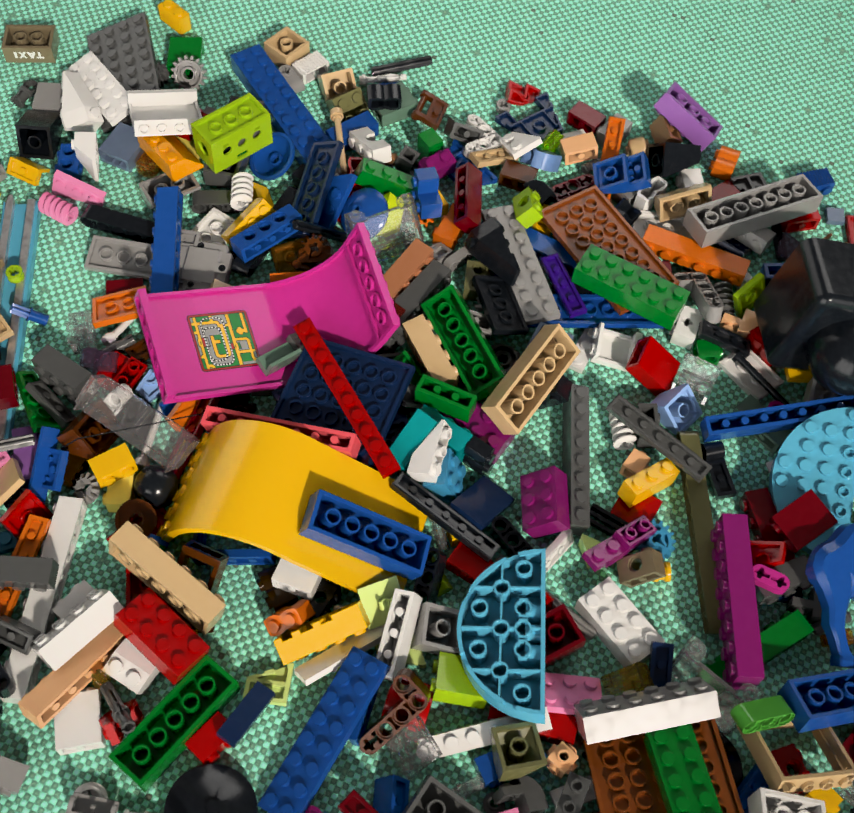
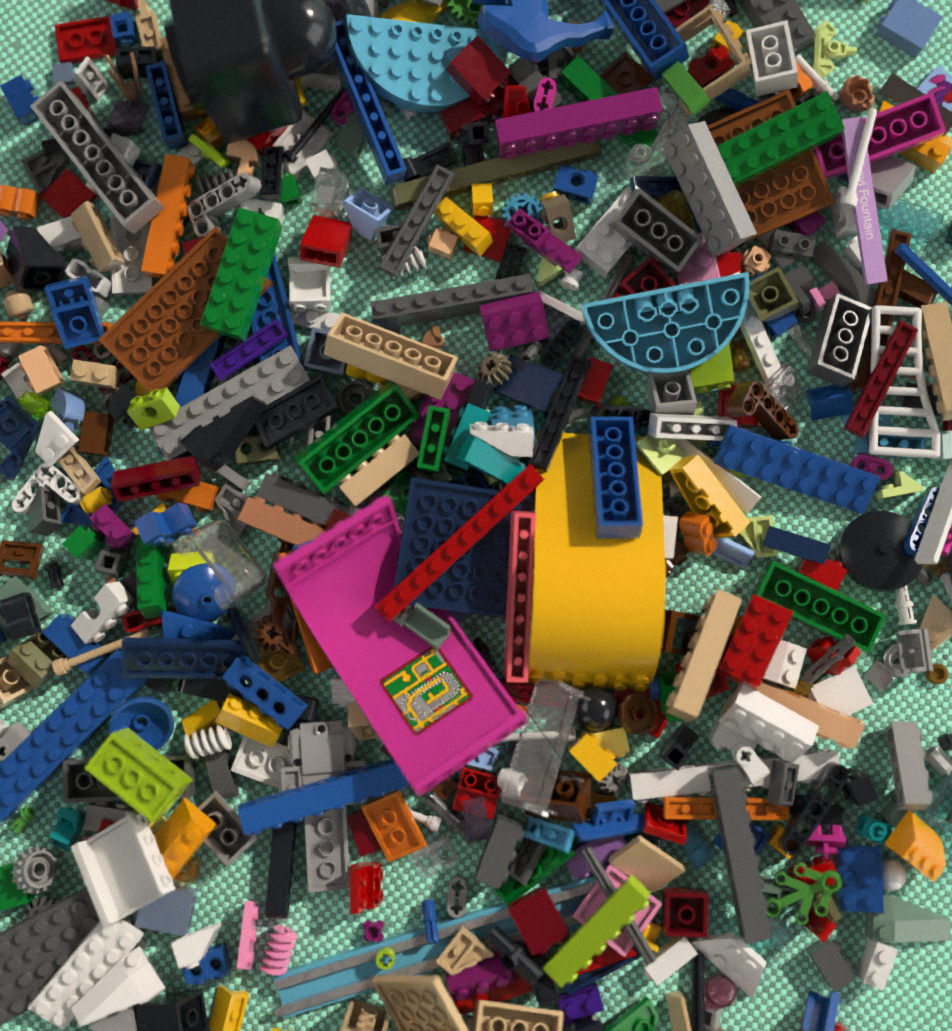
camera: 95 degrees left, 25 degrees up
(38, 274) = (369, 935): none -> magenta plate
(41, 341) = (461, 896): none -> light grey beam
(47, 603) = (751, 765): none -> white piece
(58, 413) = (549, 834): none -> dark azure plate
(80, 274) = (365, 886): none -> red brick
(82, 772) = (879, 675): none -> flat silver slope
(90, 548) = (676, 748): none -> black brick
(212, 98) = (67, 828): none -> teal brick
(232, 79) = (25, 815): none -> bright green pin
(260, 654) = (733, 552): none -> light blue plate
(410, 130) = (55, 575): none -> black pin
(461, 157) = (96, 499): none -> yellow brick
(461, 717) = (740, 357): none -> clear orange cone
(502, 478) = (495, 369): none -> dark tan gear
(513, 516) = (534, 348): none -> dark grey axle
(541, 437) = (433, 338): none -> medium nougat piece
(567, 179) = (95, 374): none -> tan brick
(579, 571) = (571, 280): none -> white wheel
(609, 646) = (655, 231): none -> dark grey brick
(627, 211) = (122, 300): black panel -> none
(669, 607) = (582, 193): none -> blue brick
(673, 507) = (482, 199): none -> yellow brick
(727, 383) = (319, 160): none -> white brick
(733, 506) = (471, 139): none -> black brick
(782, 669) = (626, 75): none -> reddish brown plate
(827, 222) = (90, 79): none -> white slope

